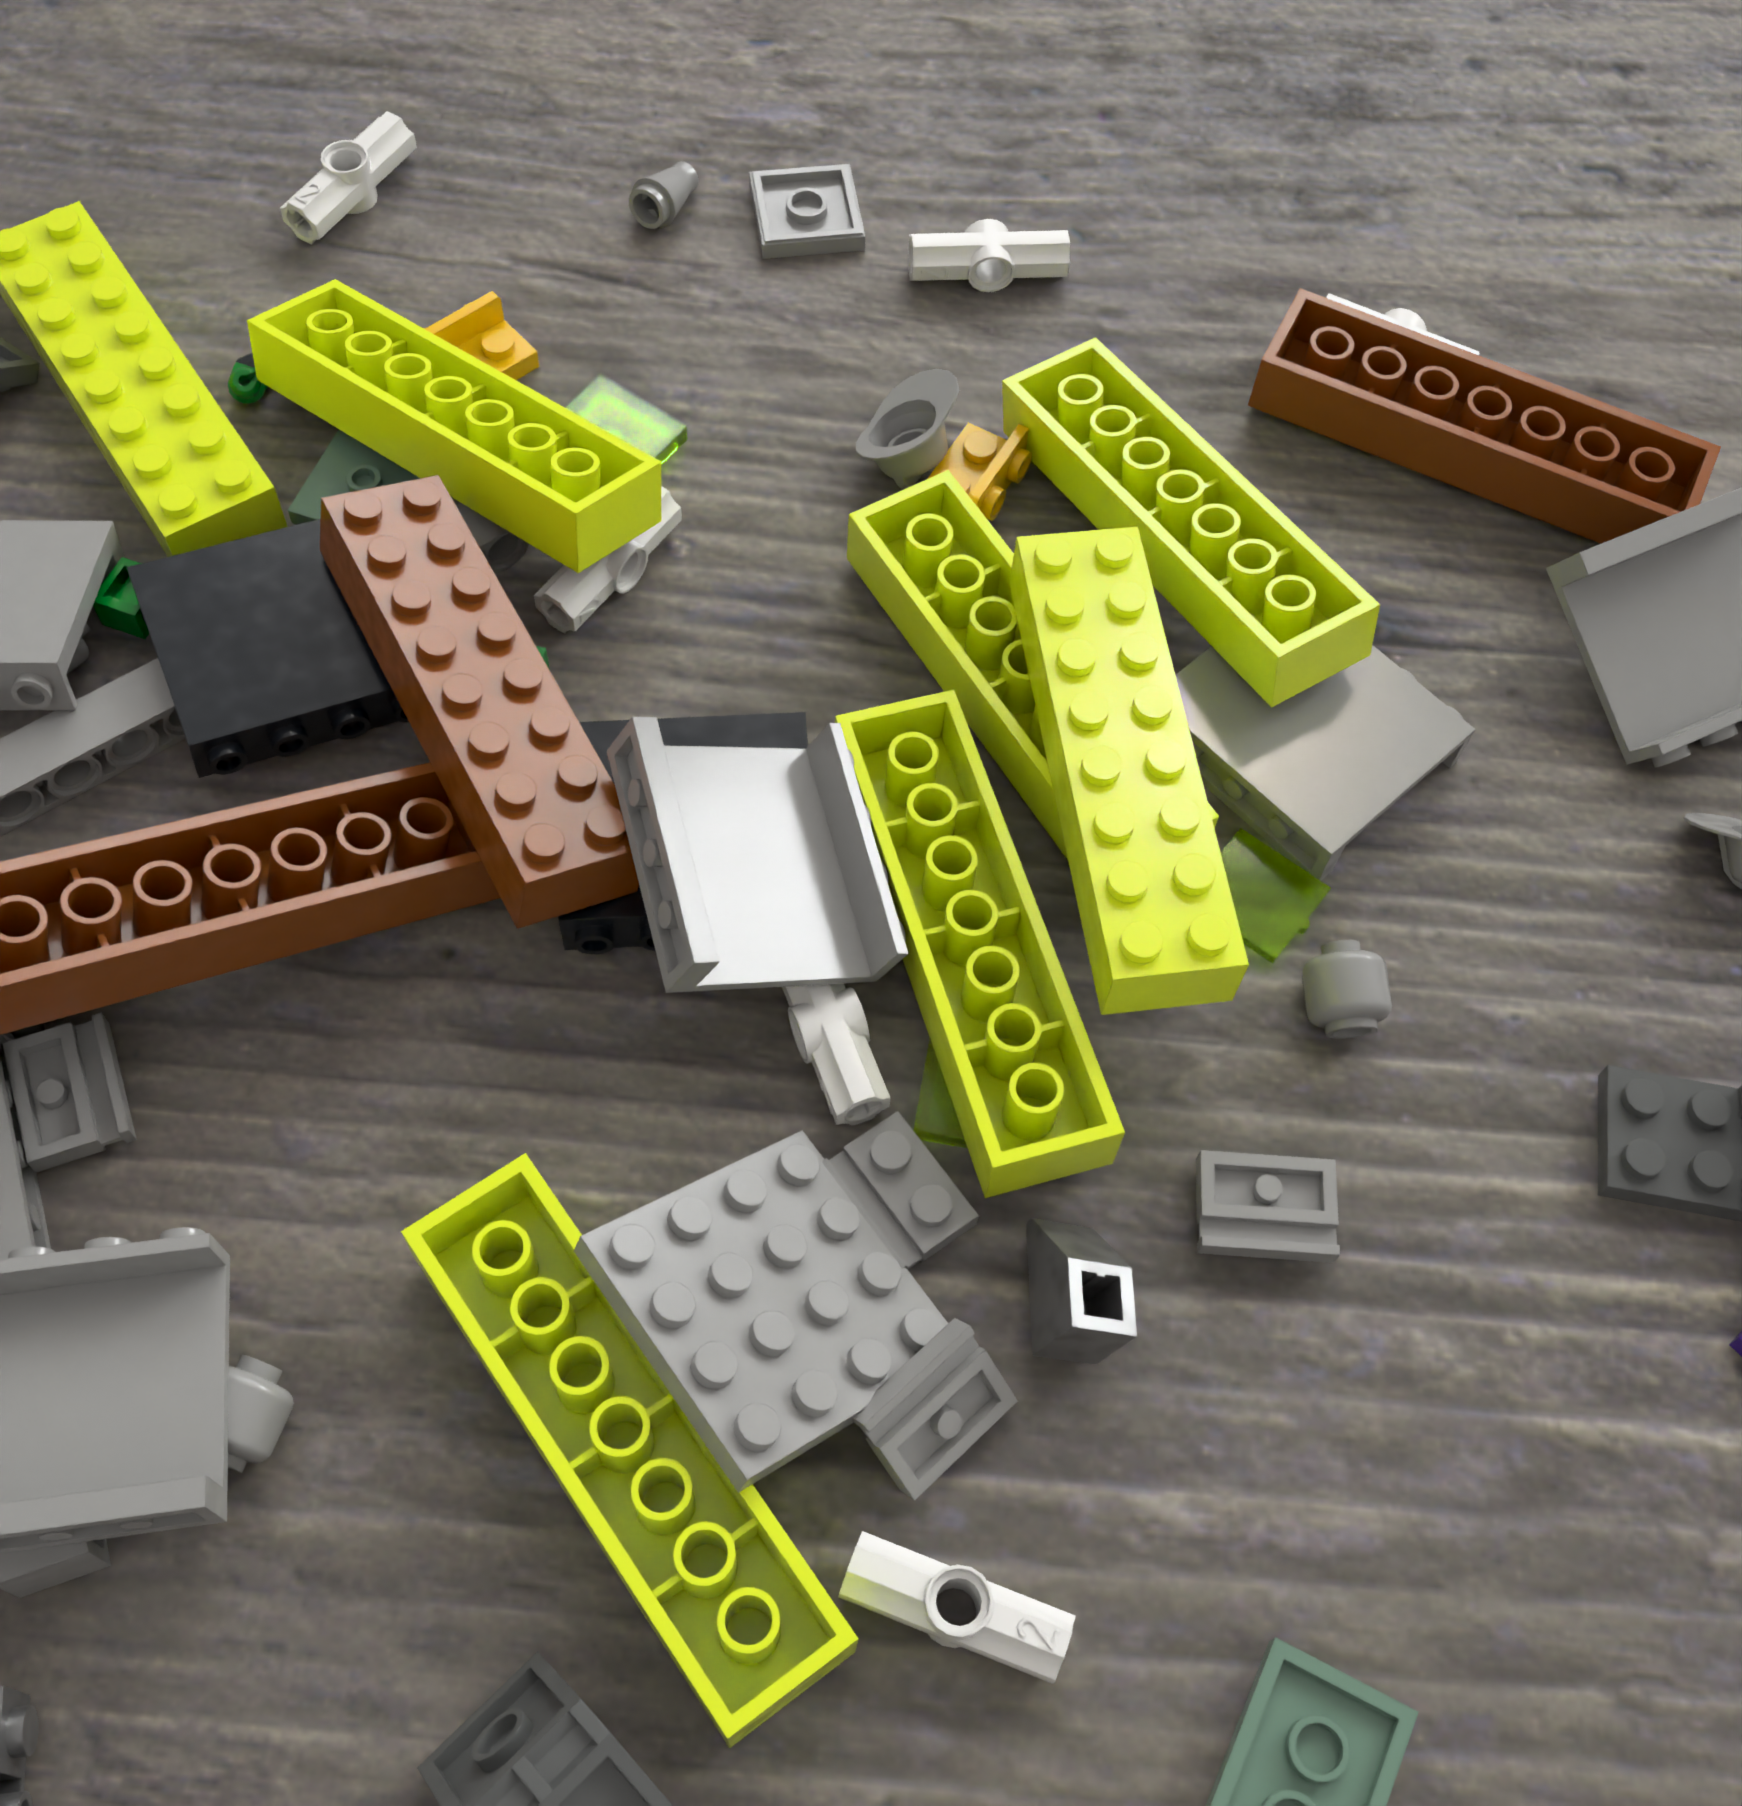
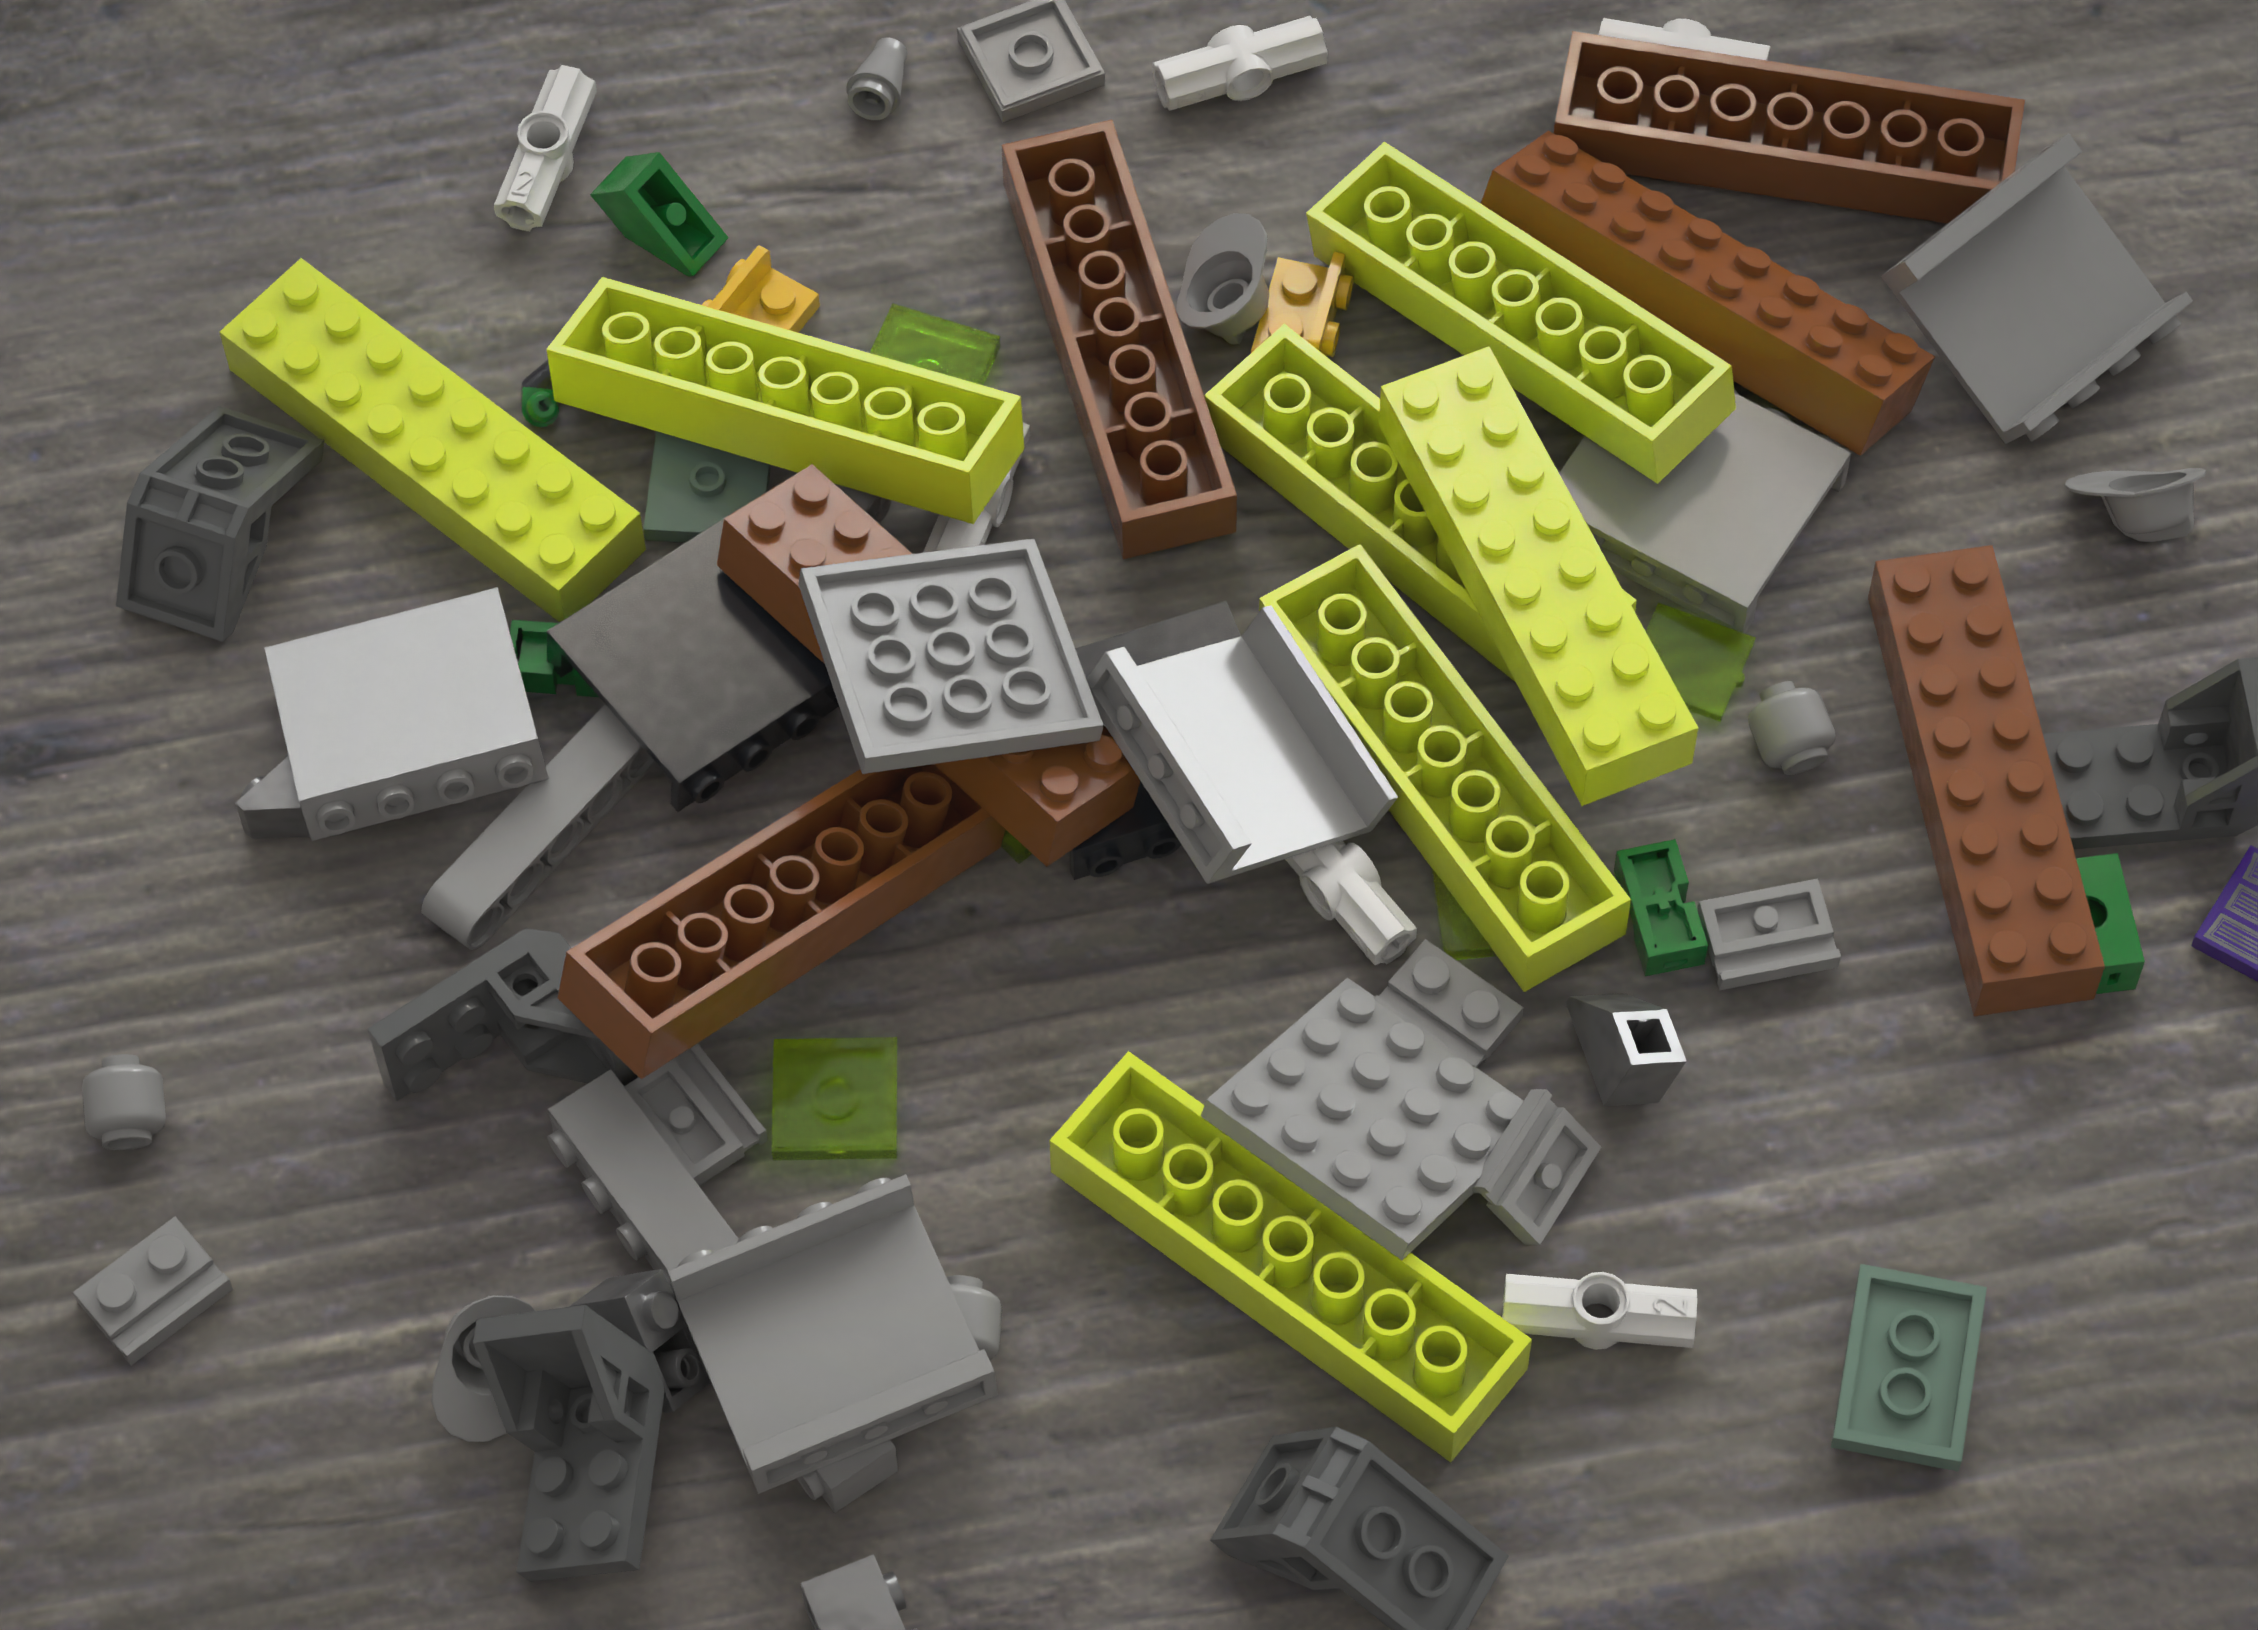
camera: 10 degrees left, 0 degrees up
(225, 1114) = (835, 1098): none -> clear neon green tile
(424, 251) = (659, 212): none -> green slope
(473, 684) = (949, 655): none -> light grey plate
(790, 459) = (1119, 340): none -> dark orange brick
(1156, 1123) = (1657, 889): none -> green piece
(1434, 599) = (1772, 326): none -> dark orange brick
(1542, 1114) = (1985, 782): none -> dark orange brick
(1645, 1297) = (2112, 922): none -> green piece

